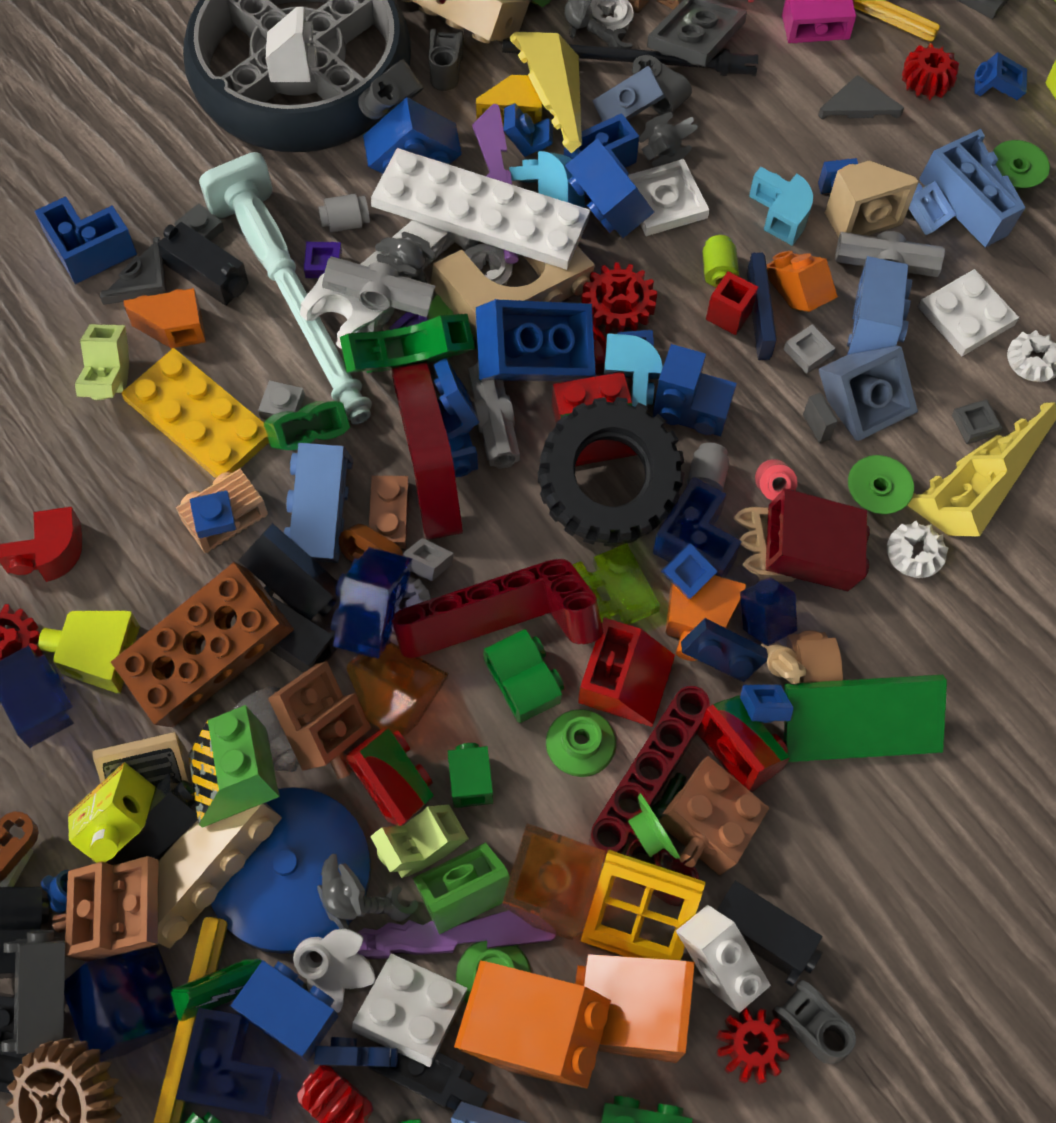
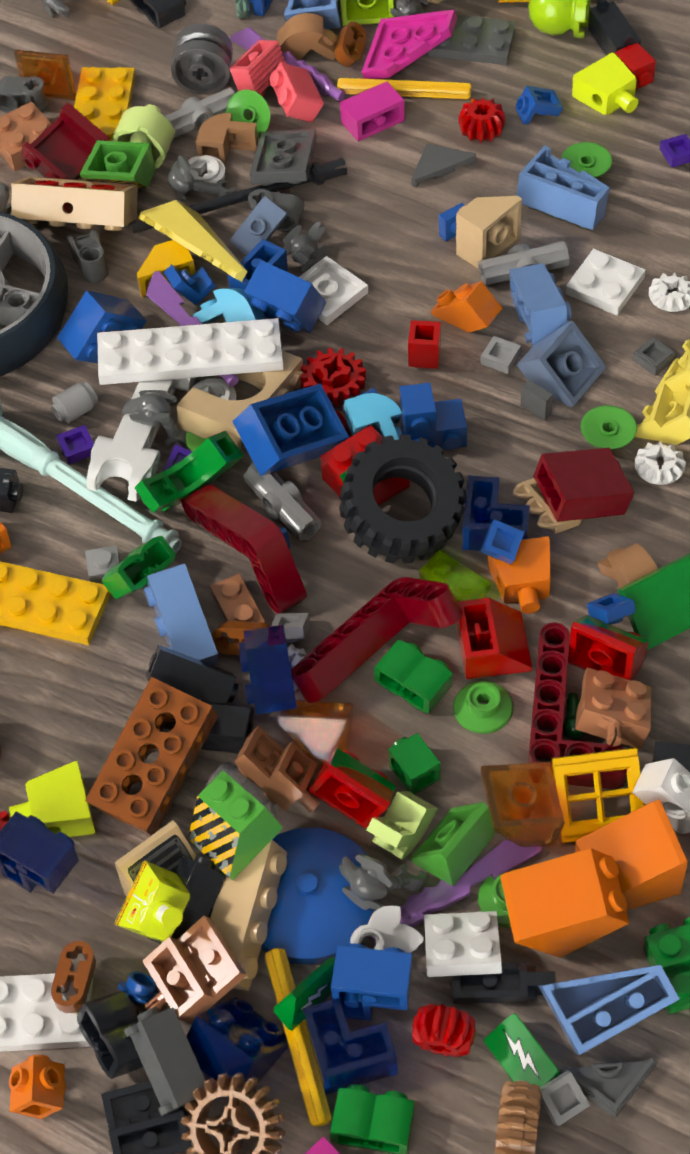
camera: 20 degrees left, 10 degrees down
(212, 514) = (103, 661): blue plate -> none
(245, 502) = (103, 660): light nougat brick -> none
(345, 1052) = (443, 988): dark blue plate -> none
(378, 286) = (144, 437): light grey piece -> none
(389, 90) = (67, 292): dark grey piece -> none
(454, 402) = (248, 494): blue bracket -> none
(650, 831) = (577, 729): bright green piece -> none
(710, 465) = (471, 463): light grey brick -> none
(718, 258) = (395, 318): lime brick -> none
(724, 650) = (558, 589): dark blue plate -> none
(762, 311) = (451, 343): dark blue tile -> none
(769, 611) = (575, 548): clear blue brick -> none
(771, 470) = (520, 454): coral brick -> none
(783, 662) = (604, 578): tan axle -> none
(787, 203) = (425, 255): medium azure brick -> none
(930, 207) = (537, 217): light blue bracket -> none

